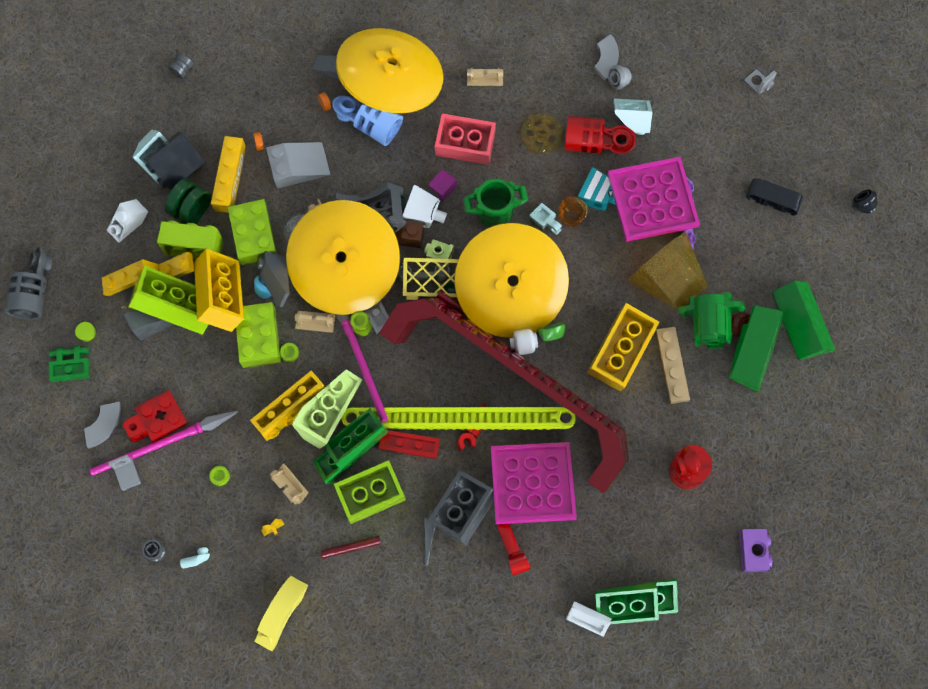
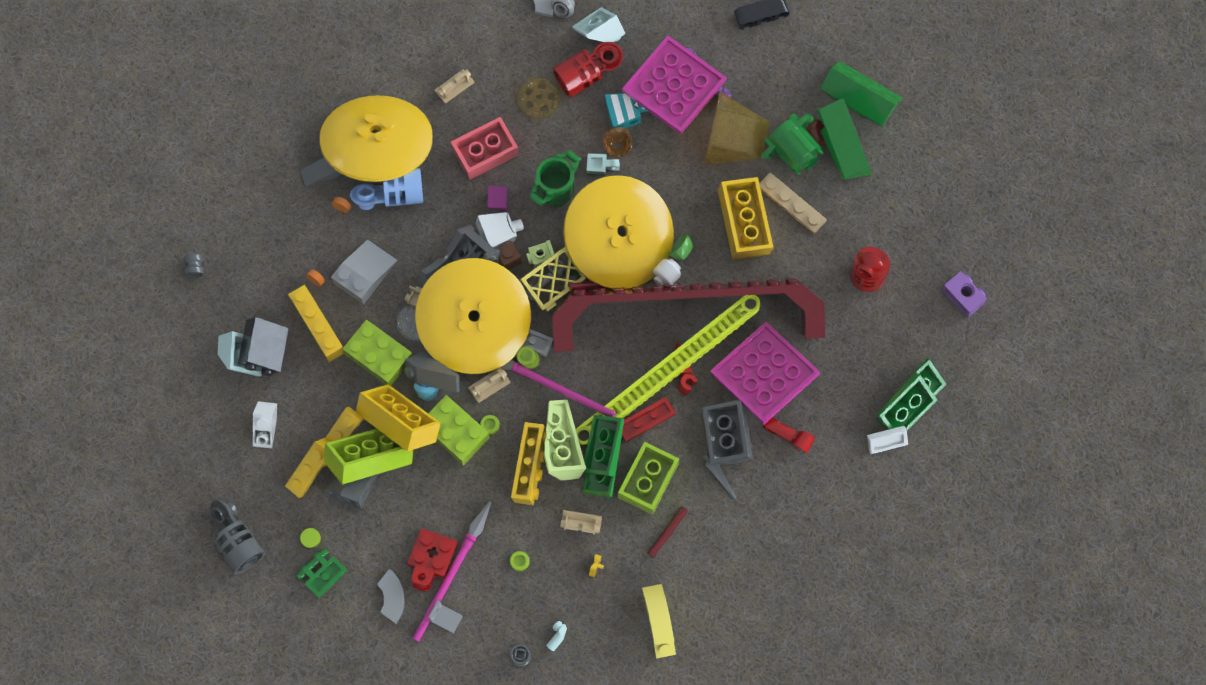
camera: 40 degrees left, 0 degrees up
(181, 238) = (334, 398): lime brick -> none
(187, 202) = (303, 370): dark green wheel -> none

